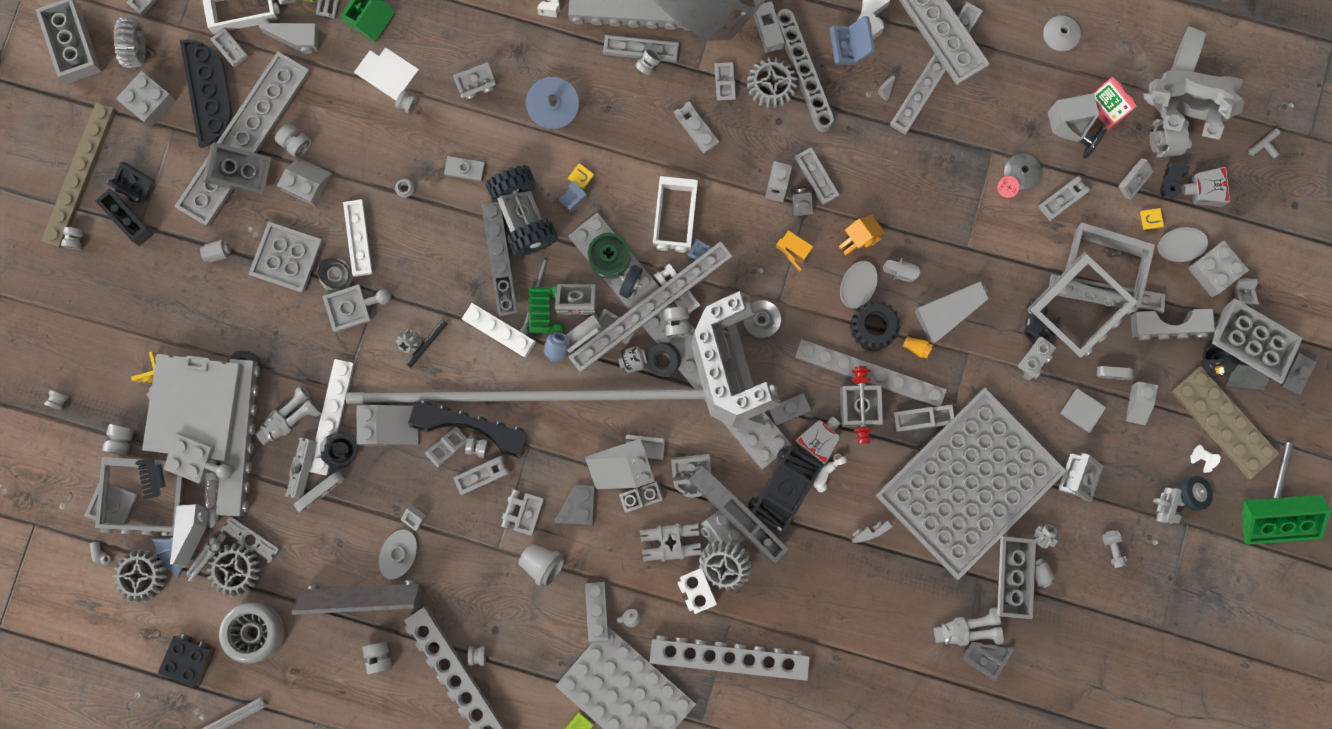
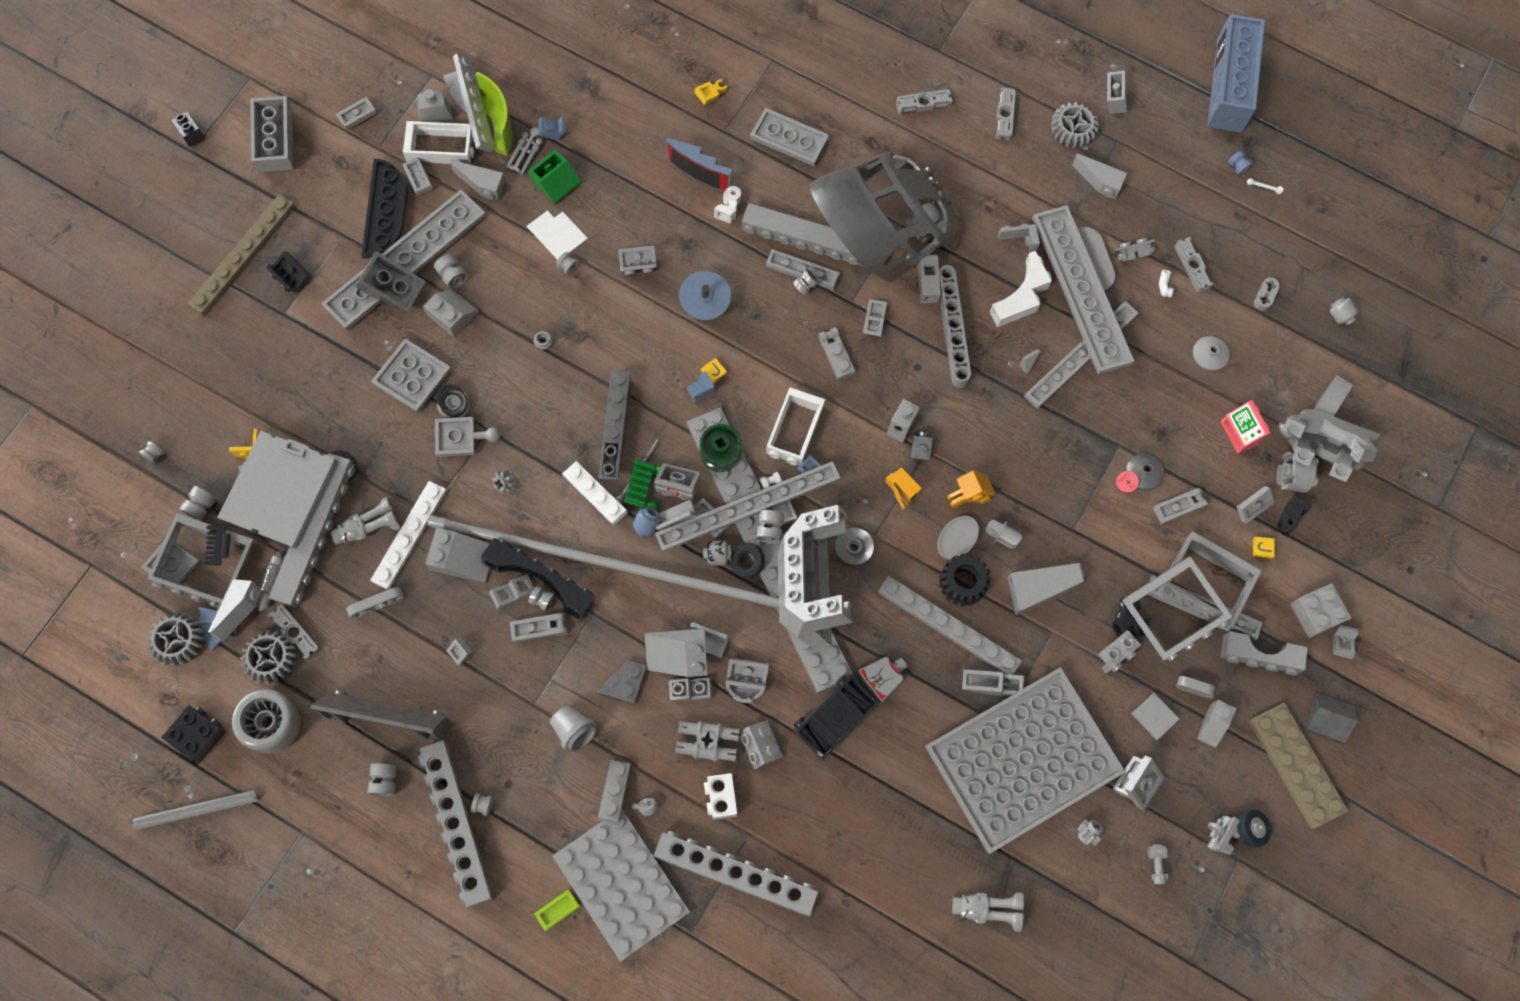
camera: 10 degrees right, 10 degrees down
(72, 238) = (216, 308): light grey wheel -> none
(98, 556) = (142, 611): light grey arm -> none
(124, 217) = (271, 301): black brick -> none
(129, 42) = (327, 148): light grey gear -> none
(146, 99) = (326, 202): light grey brick -> none
(191, 459) = (260, 537): light grey plate -> none
(207, 553) = (244, 636): light grey piece -> none
(215, 251) = (346, 353): light grey brick -> none
(298, 479) = (364, 575): light grey piece -> none
(338, 450) = (406, 567): black hat -> none
(357, 238) = (485, 374): white plate -> none
(398, 554) = (433, 684): light grey piece -> none
(426, 343) = (520, 489): black bar -> none
(464, 169) = (604, 337): light grey plate -> none
(514, 195) = (644, 367): black plate -> none
(528, 513) = (573, 676): light grey plate -> none
(630, 281) = (735, 476): black wheel -> none
(727, 575) = (746, 779): light grey gear -> none
(738, 515) = (782, 730): flat silver slope -> none
(779, 81) = (933, 329): light grey gear -> none
(790, 409) = (860, 641): flat silver tile -> none
(816, 176) = (941, 426): light grey plate -> none
(822, 477) = (877, 713): white arm -> none
(852, 42) = (1005, 309): sand blue bracket -> none
(861, 405) = (932, 653): light grey brick -> none
(865, 534) = (906, 784): light grey slope -> none
(919, 347) = (1005, 613): light orange cone -> none
(987, 658) = (1000, 943): flat silver wing -> none
(1016, 577) = (1049, 865): light grey slope -> none
(1043, 573) = (1077, 869): light grey brick -> none
(1073, 118) = (1204, 432): light grey piece -> none
(1182, 244) = (1289, 579): light grey piece -> none
(1209, 188) = (1326, 531): light grey torso -> none
(1212, 460) = (1276, 799): white piece -> none
(1218, 362) = (1305, 699): black hat -> none
(1256, 340) = (1346, 688): light grey slope -> none
(1265, 143) = (1392, 503): light grey piece -> none
(1283, 470) = (1348, 829): flat silver bar -> none
(1284, 519) = (1341, 879): green slope -> none
(1298, 374) = (1382, 736): flat silver tile -> none

